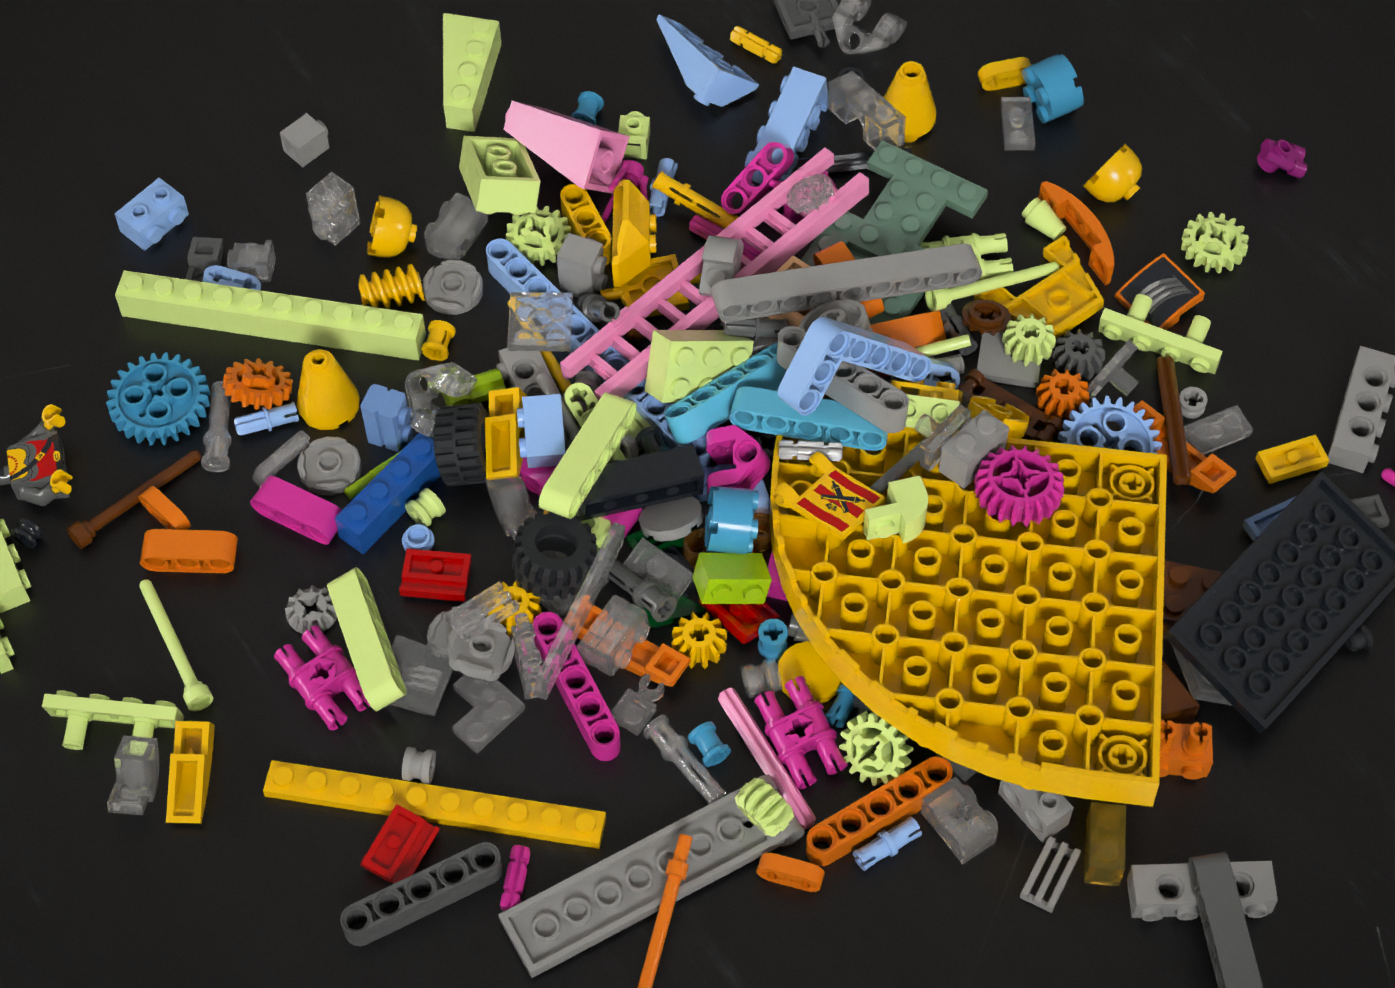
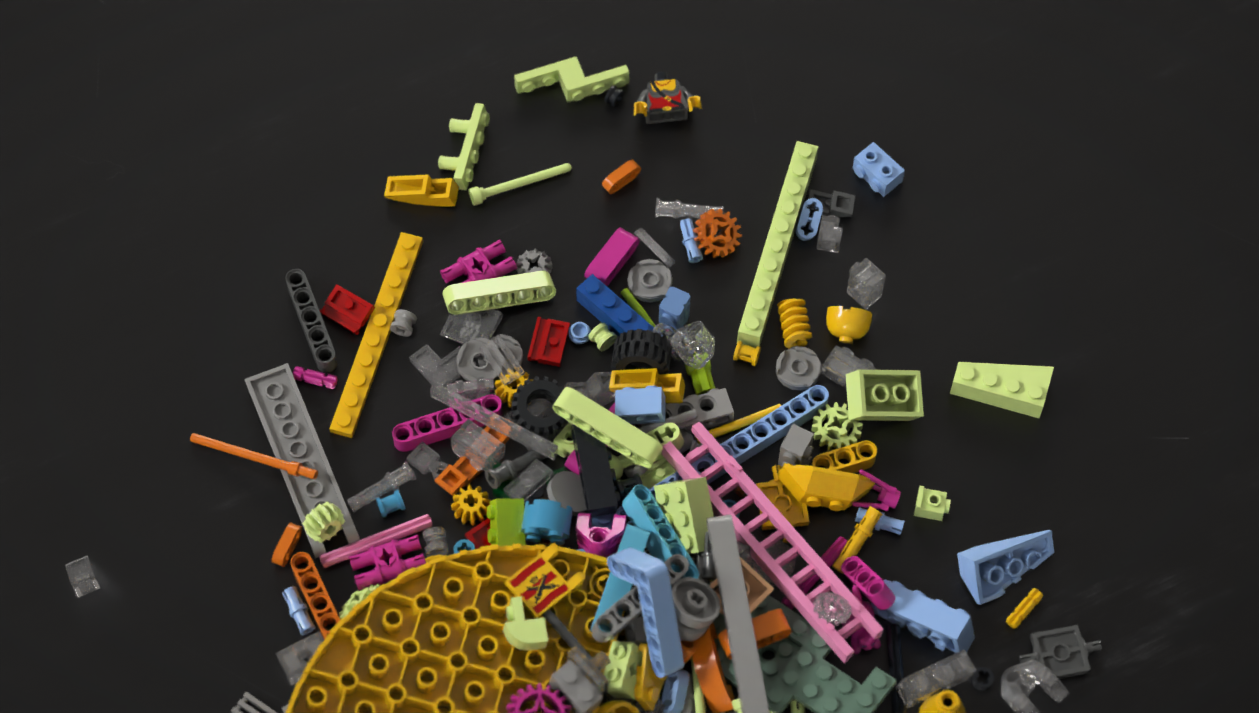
camera: 95 degrees right, 5 degrees up
(84, 531) = (611, 129): reddish brown piece -> none
(136, 775) = (419, 159): clear brick -> none
(158, 398) = (714, 173): dark azure gear -> none
(188, 551) = (587, 191): orange beam -> none
(305, 139) = (941, 271): light grey brick -> none
(325, 392) = (705, 277): yellow cone -> none
(540, 321) = (742, 414): clear plate -> none
(575, 148) = (914, 446): bright pink slope -> none
(588, 107) = (958, 472): dark azure bush -> none
(597, 308) = (755, 456): dark grey pin -> none
(721, 261) = (768, 530): light grey brick -> none
(805, 449) = (592, 578): light grey axle -> none

